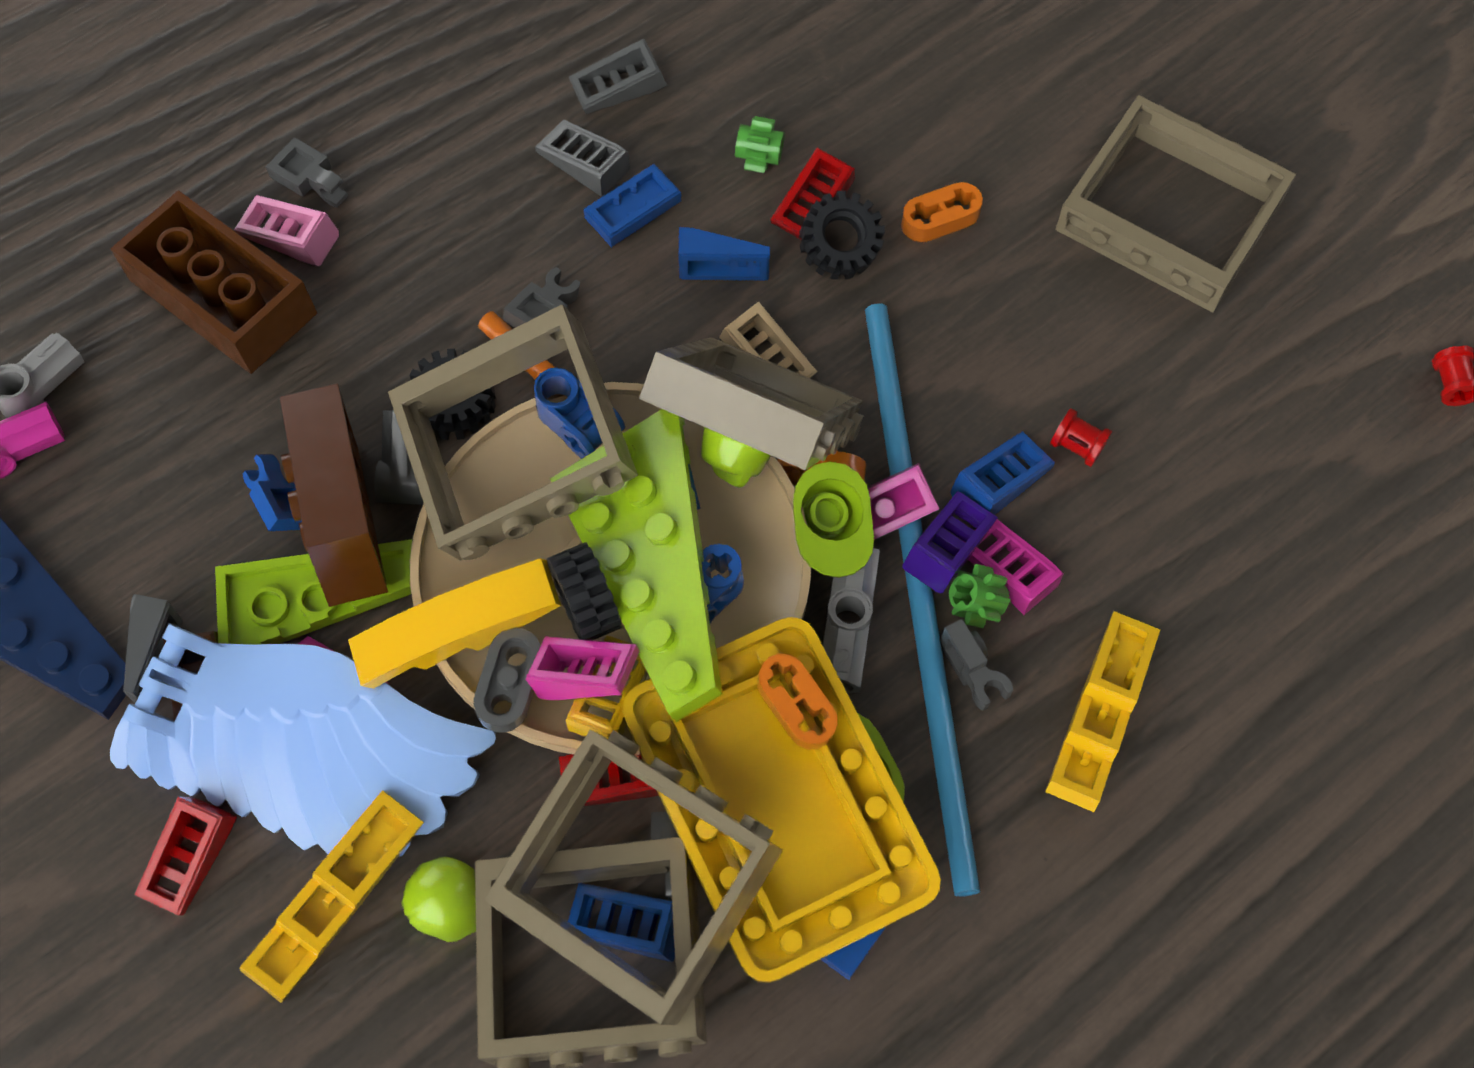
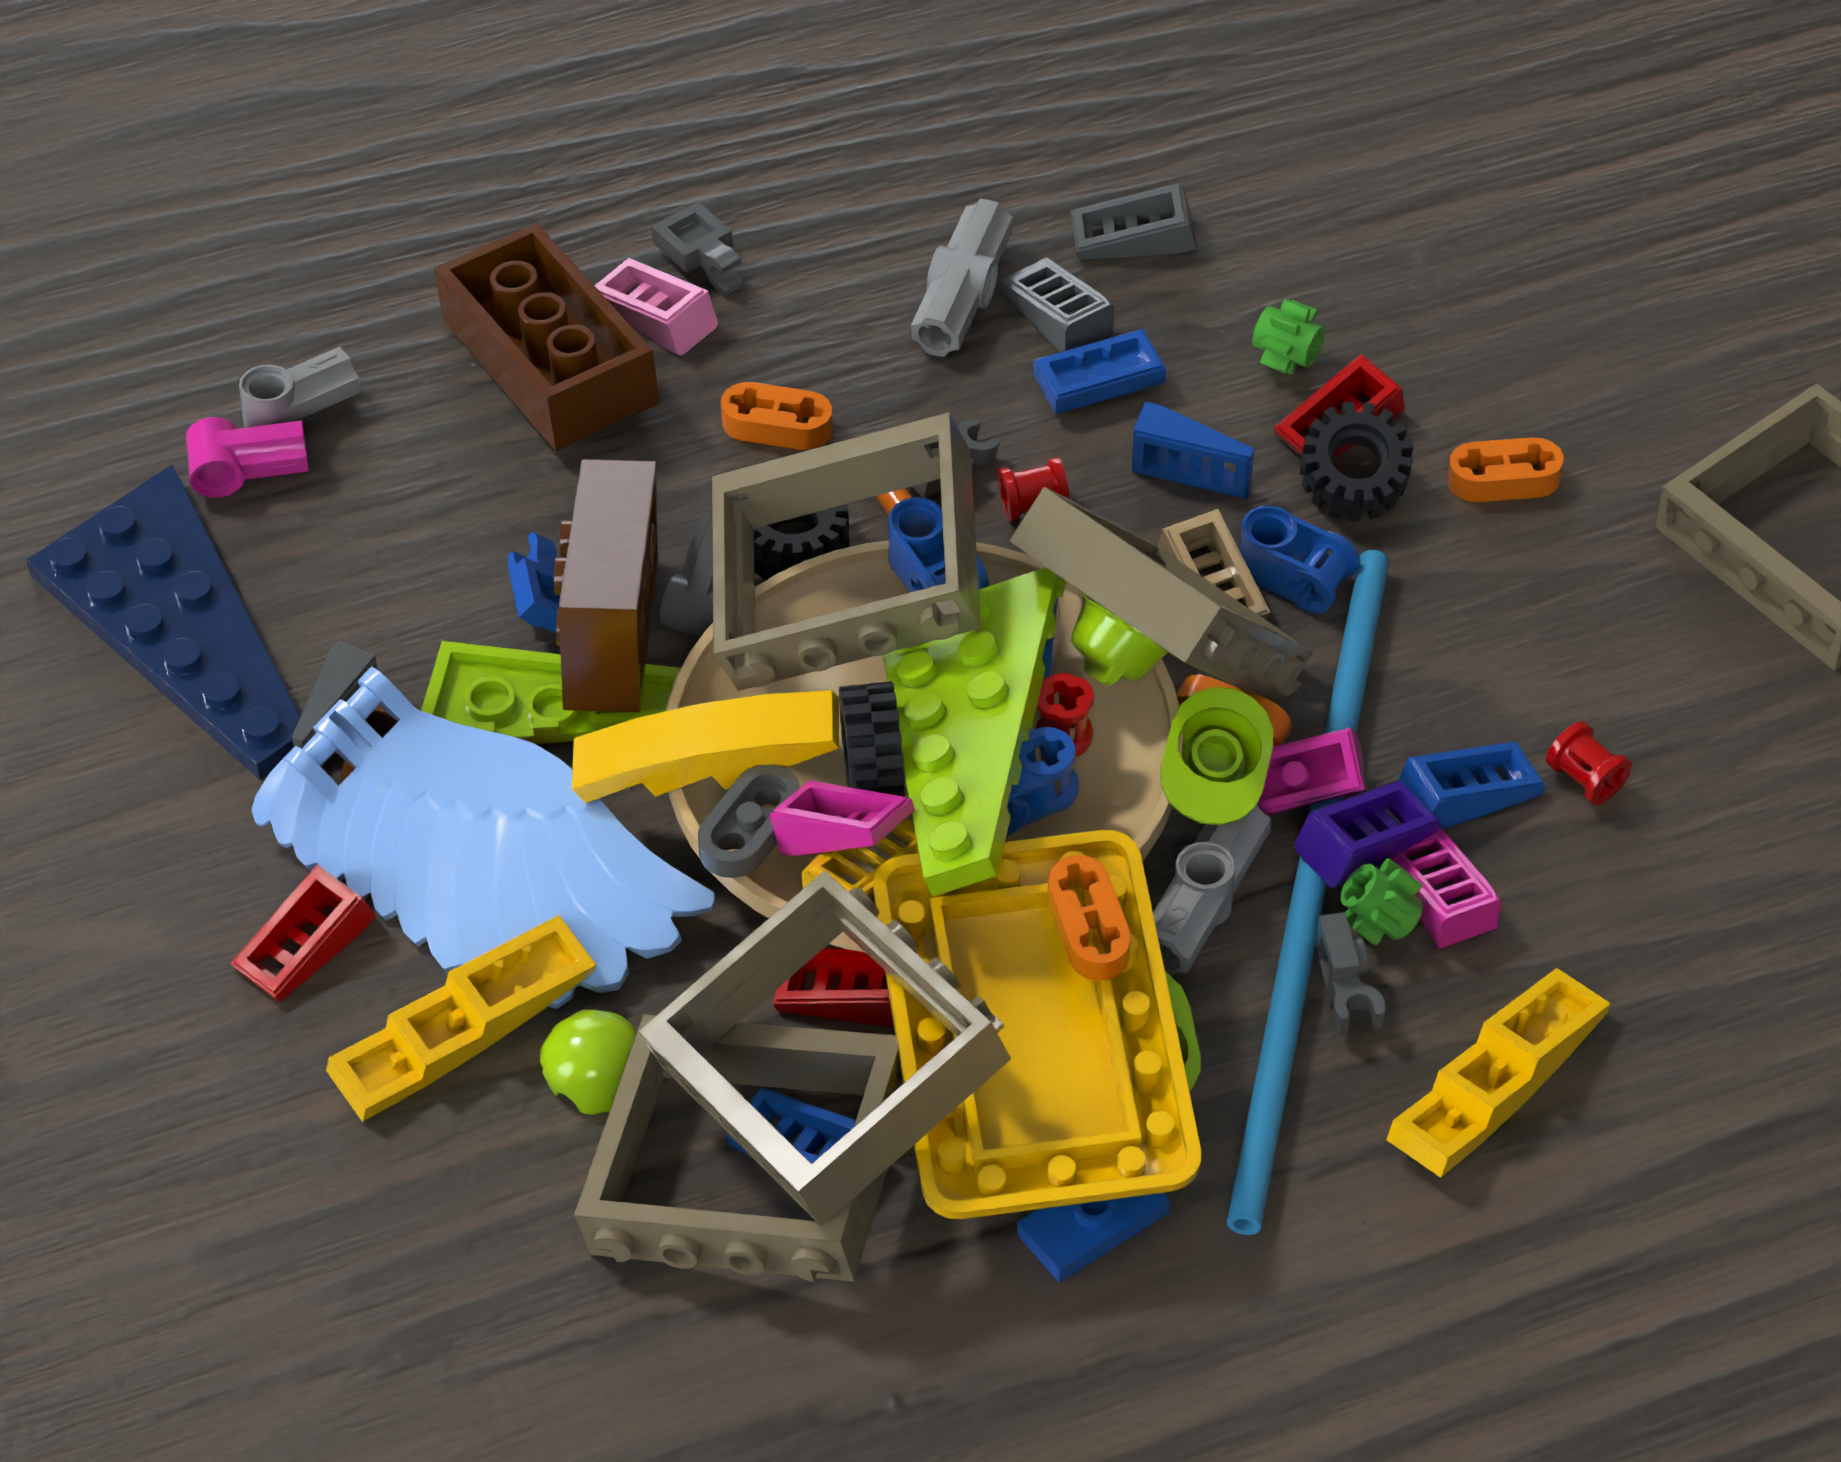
camera: 20 degrees right, 15 degrees down
(408, 300) = (776, 416): none -> orange beam
(509, 153) = (962, 278): none -> light grey piece
(617, 316) = (1021, 488): none -> red bush
(720, 509) = (1075, 702): none -> red bush
(824, 325) = (1292, 557): none -> blue piece

